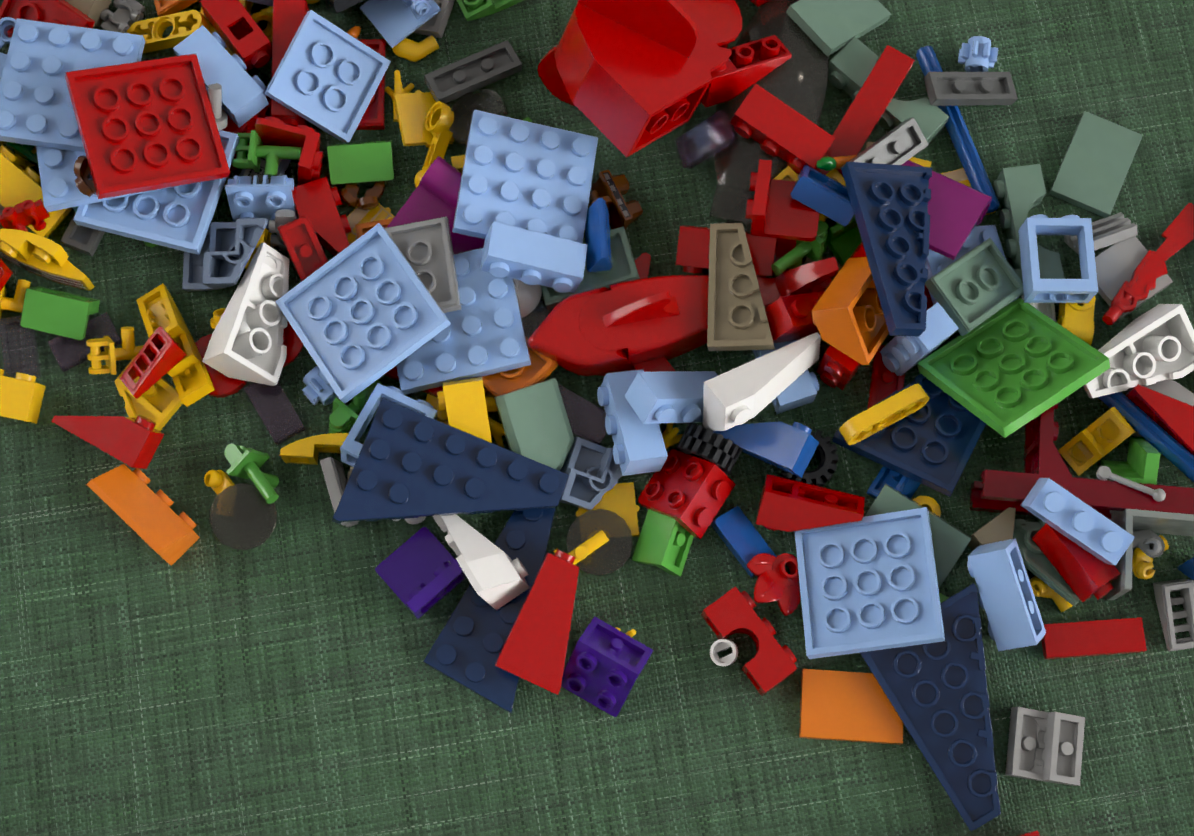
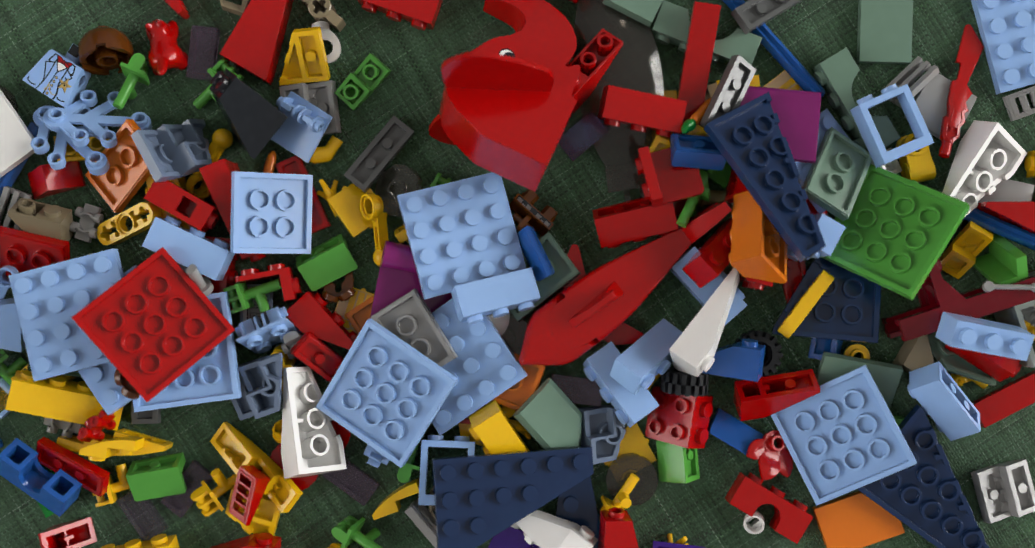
camera: 20 degrees left, 15 degrees up
(734, 298) = (662, 266): dark tan wing -> none

